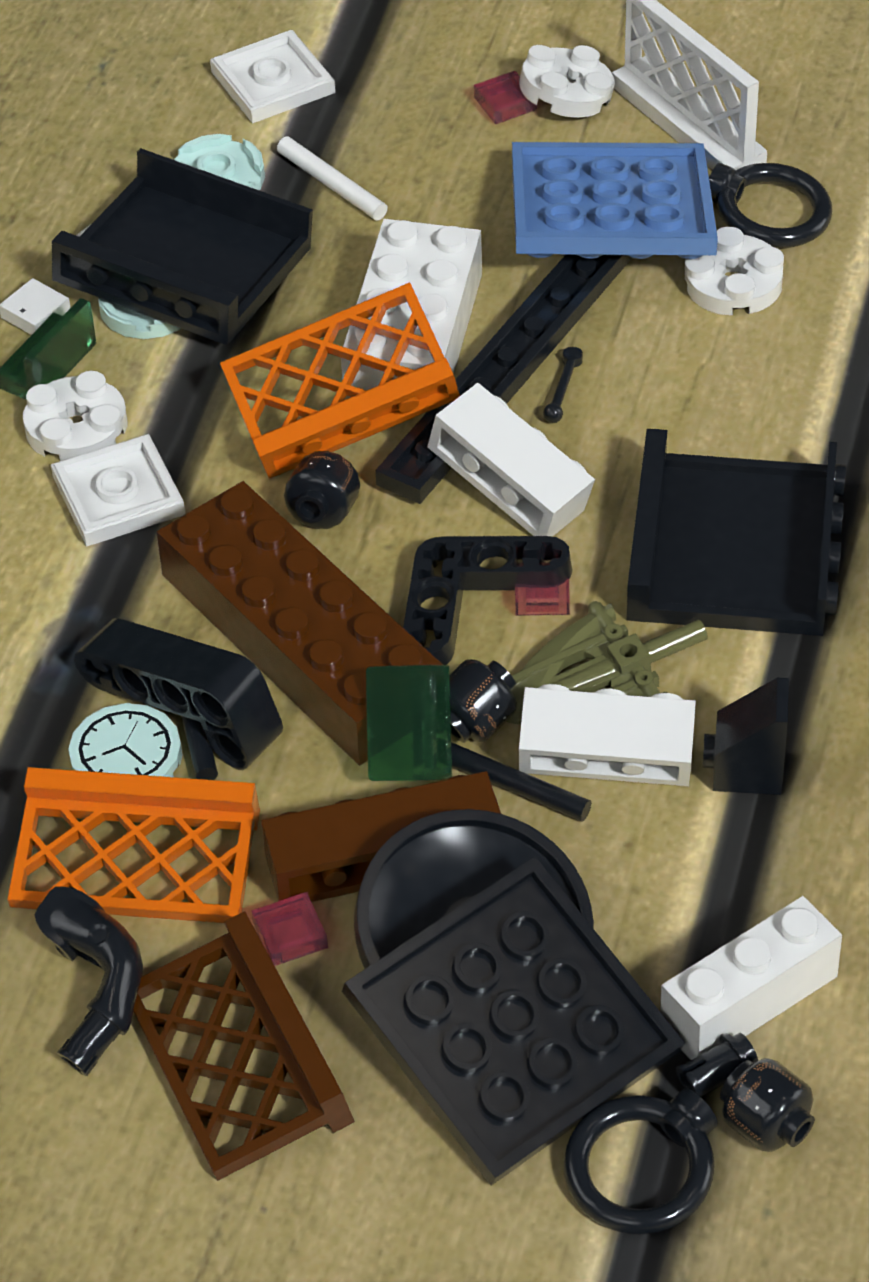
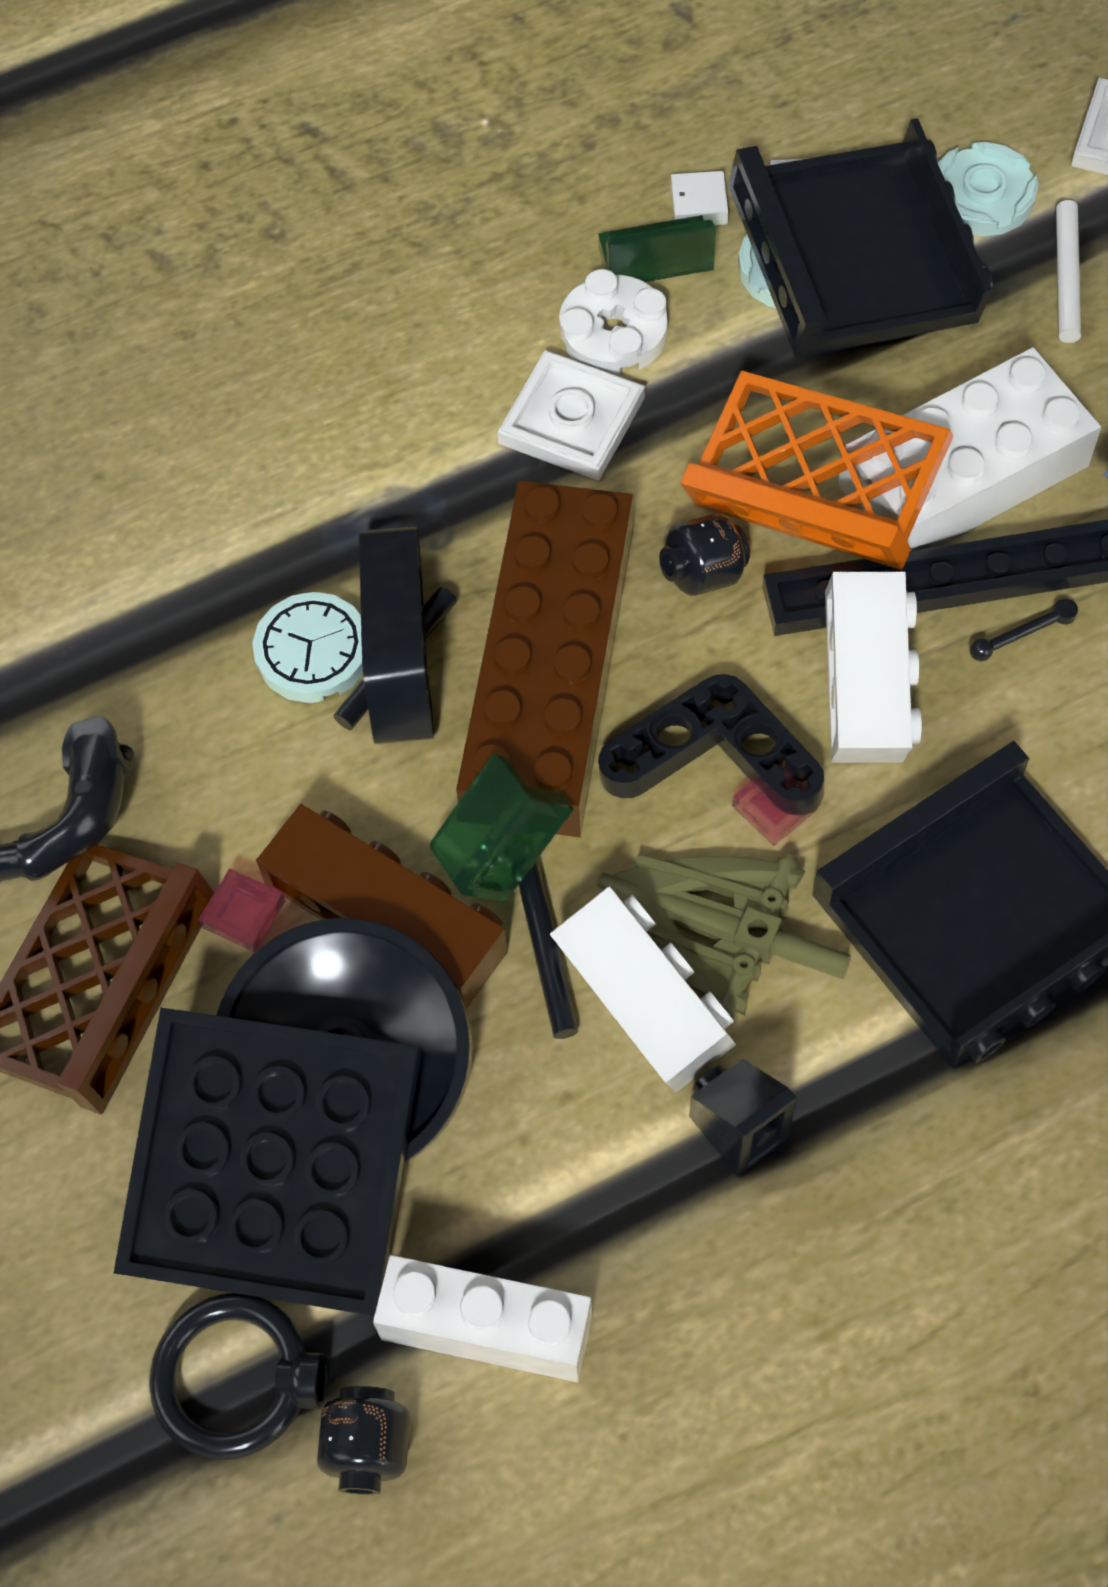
camera: 50 degrees right, 15 degrees up
(144, 801) = (266, 714): orange fence -> none
(480, 699) = (588, 855): black head -> none
(714, 1066) = (380, 1361): black pin -> none

